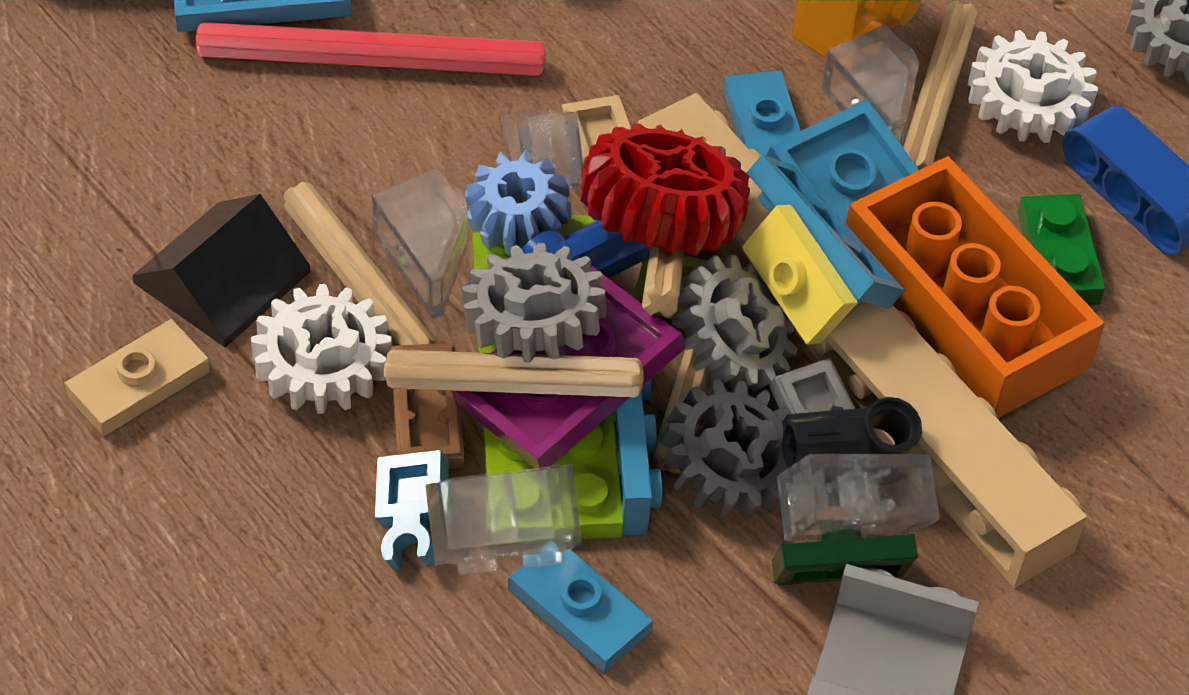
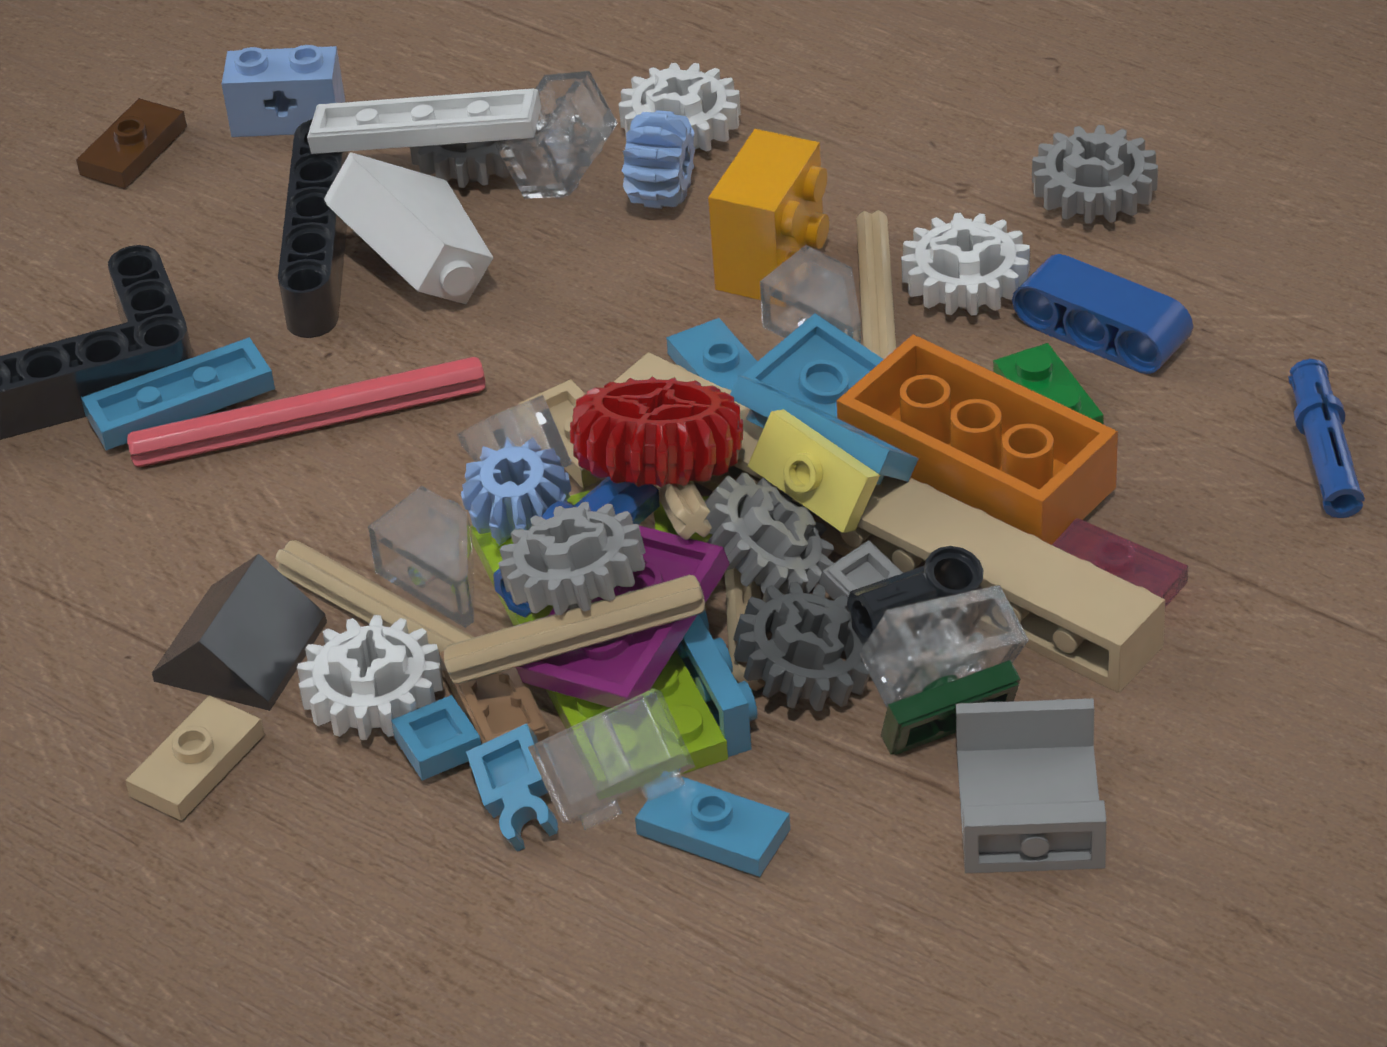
camera: 10 degrees left, 10 degrees down
(359, 430) = (435, 737): none -> dark azure plate
(1064, 452) = (1124, 559): none -> clear pink plate

